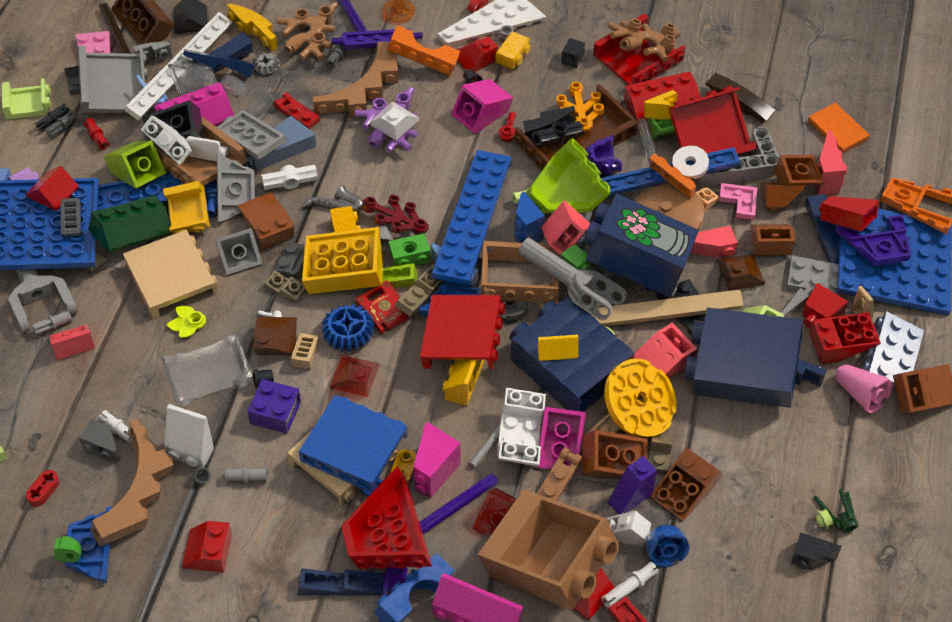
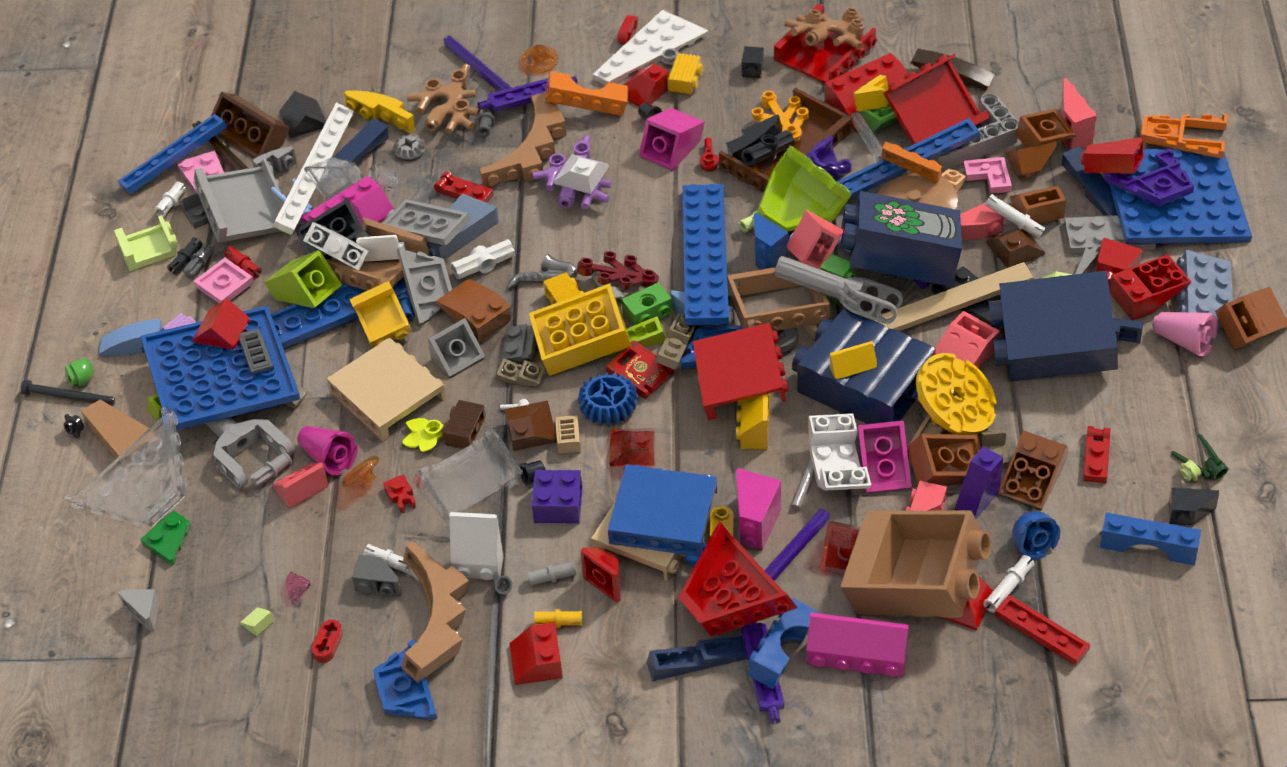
camera: 10 degrees left, 5 degrees down
(36, 431) = (296, 585): none -> clear pink tile
(58, 65) = (170, 199): none -> white pin
(67, 549) = (384, 692): bright green piece -> none
(73, 26) = (172, 154): none -> blue plate
(74, 147) = (223, 281): none -> bright pink plate
(103, 316) = (329, 446): none -> dark pink cone
(123, 345) = (362, 473): none -> clear orange piece
(130, 223) = (323, 344): dark green slope -> none
(149, 368) = (400, 491): none -> red plate
(212, 60) = (388, 155): dark blue slope -> none
(221, 321) = (463, 424): none -> reddish brown brick
(237, 517) = (561, 618): none -> yellow pin
(288, 483) = (602, 571): none -> red slope
(560, 475) = (897, 491): medium nougat plate -> none
(583, 492) = (928, 497): none -> coral slope
(630, 527) = (996, 523): white slope -> none
(692, 153) = (927, 134): white tile -> none
(747, 483) = (1097, 455): none -> red plate
(748, 564) = (1176, 541): none -> blue arch
(752, 250) = (1016, 217): none -> white pin
(843, 127) = (1061, 67): orange tile -> none
(863, 302) = (1158, 245): tan slope -> none

